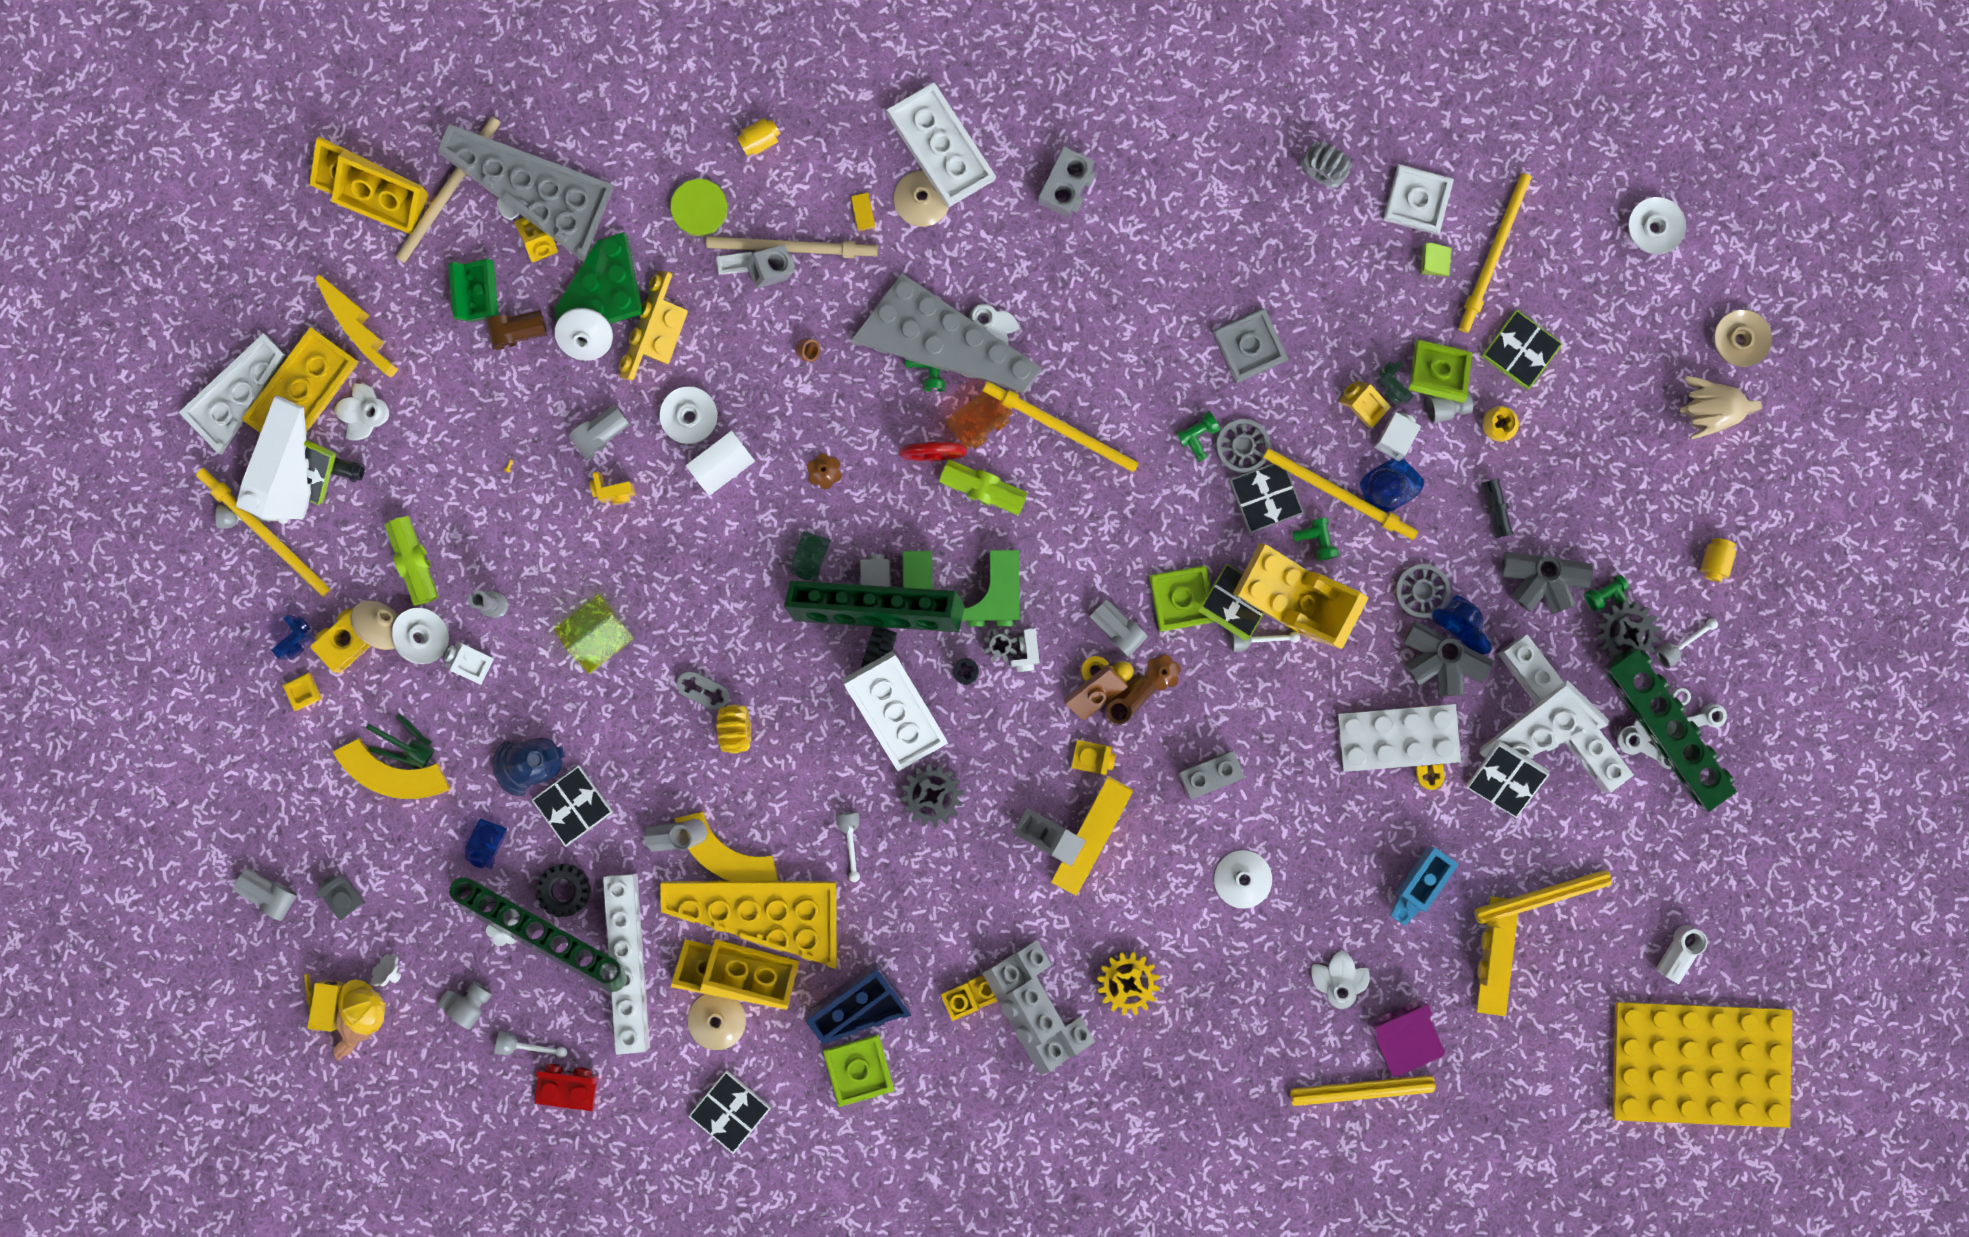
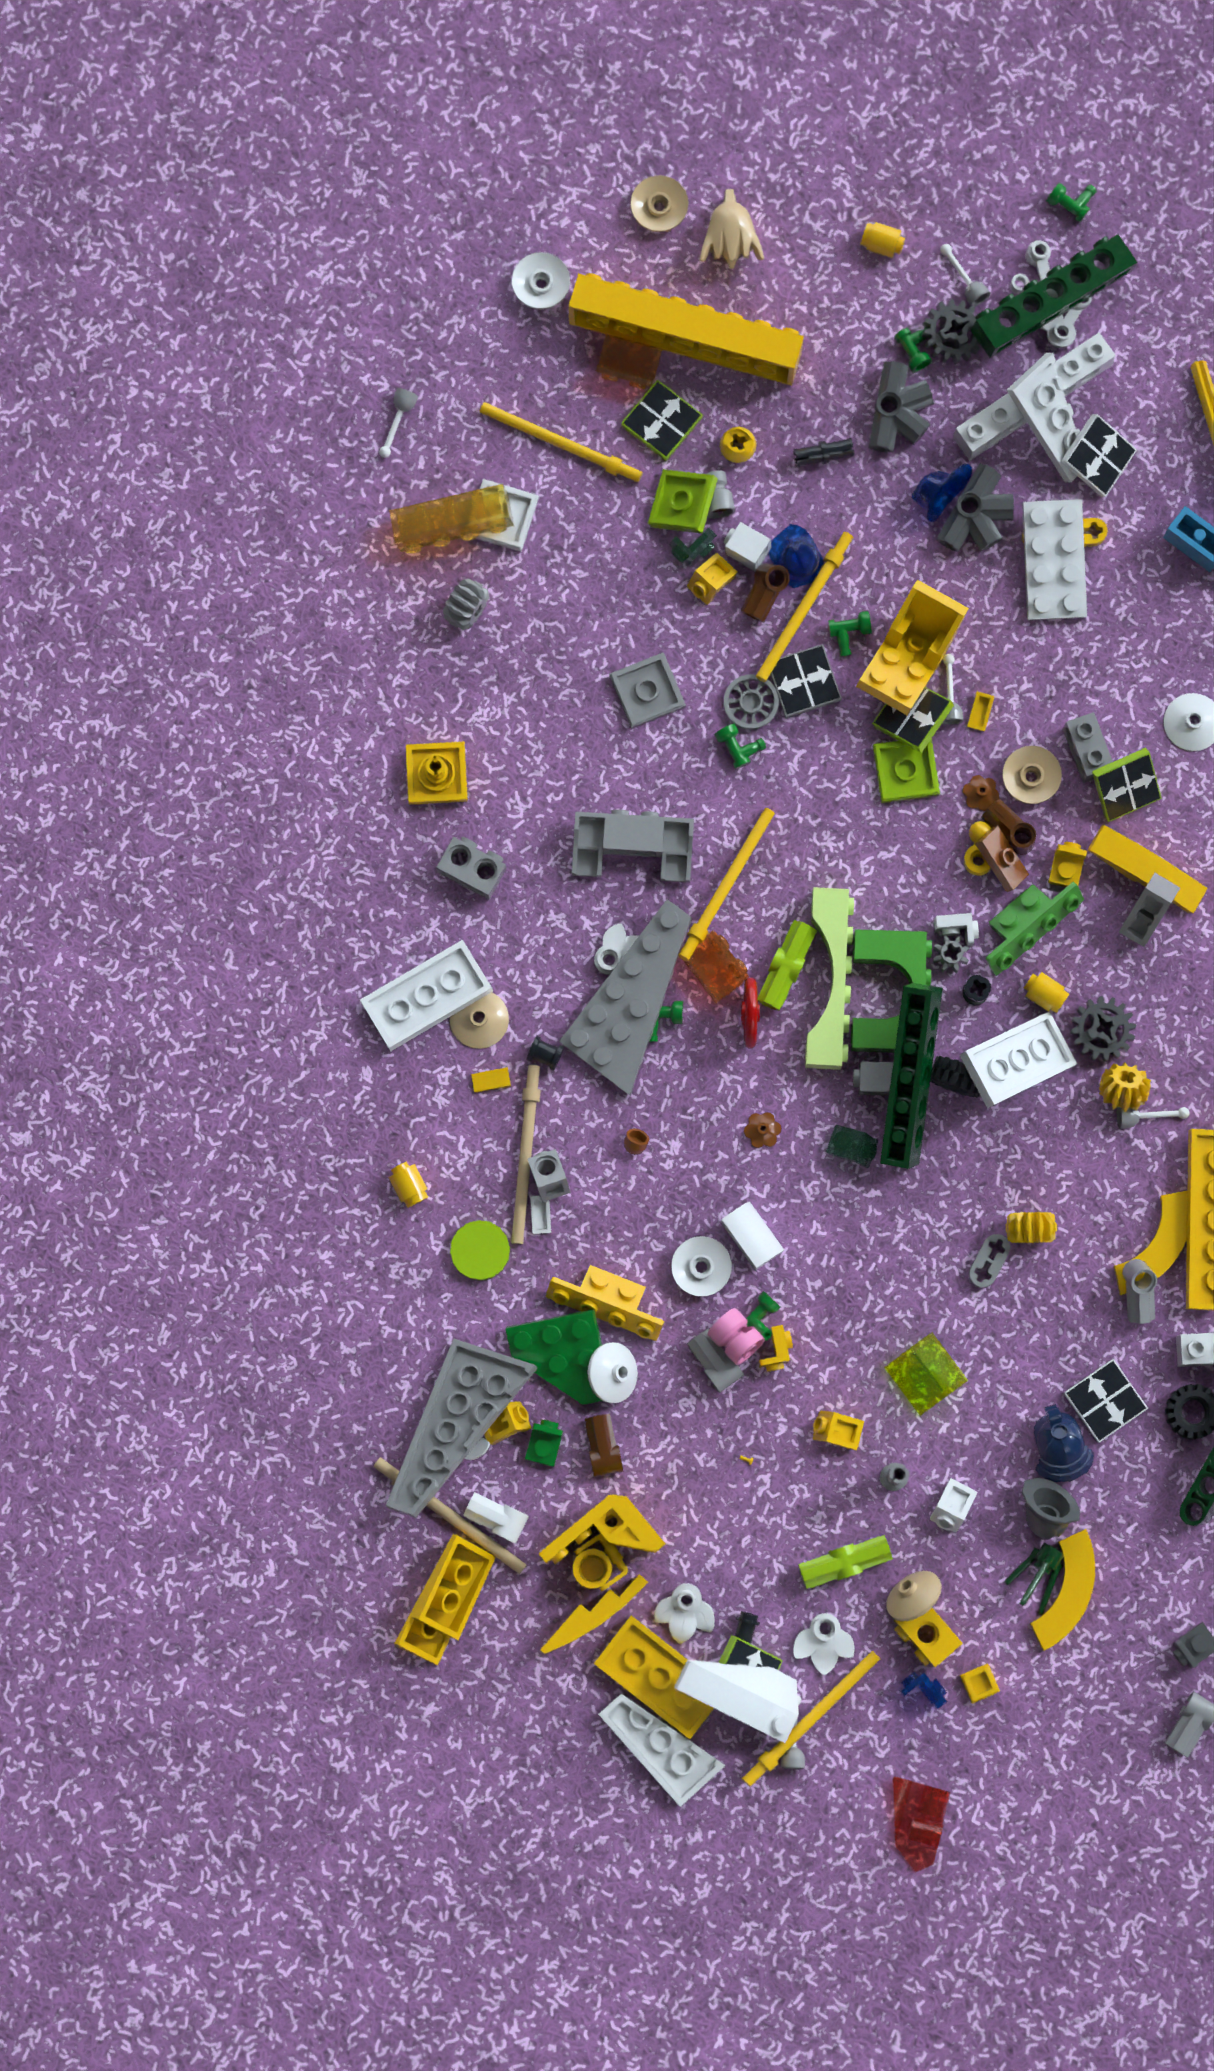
camera: 85 degrees left, 5 degrees down
(173, 637) = (918, 1820): none -> clear red panel
(332, 543) = (824, 1648): none -> white plate
(400, 325) = (593, 1567): none -> yellow piece
(428, 627) = (922, 1544): white dish -> none
(437, 341) = (630, 1531): none -> yellow bracket
(443, 237) = (501, 1519): none -> white piece
(466, 752) = (1048, 1508): none -> dark grey piece
(473, 290) = (561, 1488): green bracket -> none
(484, 844) = (1143, 1492): clear blue bracket -> none
(517, 274) = (544, 1443): none -> green bracket
(536, 550) = (837, 1429): none -> yellow bracket
(618, 447) = (735, 1336): none -> bright pink wheel
(635, 465) = (766, 1305): none -> green piece
(874, 817) = (1124, 1087): none -> yellow gear
(889, 260) = (545, 1053): none -> black bush
(966, 739) = (1046, 992): none -> yellow brick
(1033, 528) = (830, 918): none -> yellowish green arch
(1036, 720) = (1027, 921): none -> bright green bracket
(1105, 327) = (633, 836): none -> light grey bracket
(1122, 632) = (939, 831): light grey piece -> none
(1159, 146) = (436, 773): none -> yellow plate
(1174, 813) = (1126, 784): none -> black tile
(1196, 715) = (1034, 760): none -> tan dish
(1244, 670) = (980, 711): none -> yellow piece
(1350, 451) = (763, 593): none -> reddish brown piece
(1410, 147) = (451, 518): none -> clear yellow brick
(1422, 590) = (905, 530): light grey wheel -> none
(1435, 260) = (566, 501): lime slope -> none
(1526, 99) = (403, 401): none -> hinge
(1578, 314) = (629, 362): none -> clear orange bracket
(1615, 365) = (685, 328): none -> yellow brick
(1763, 754) = (1076, 207): none -> green piece

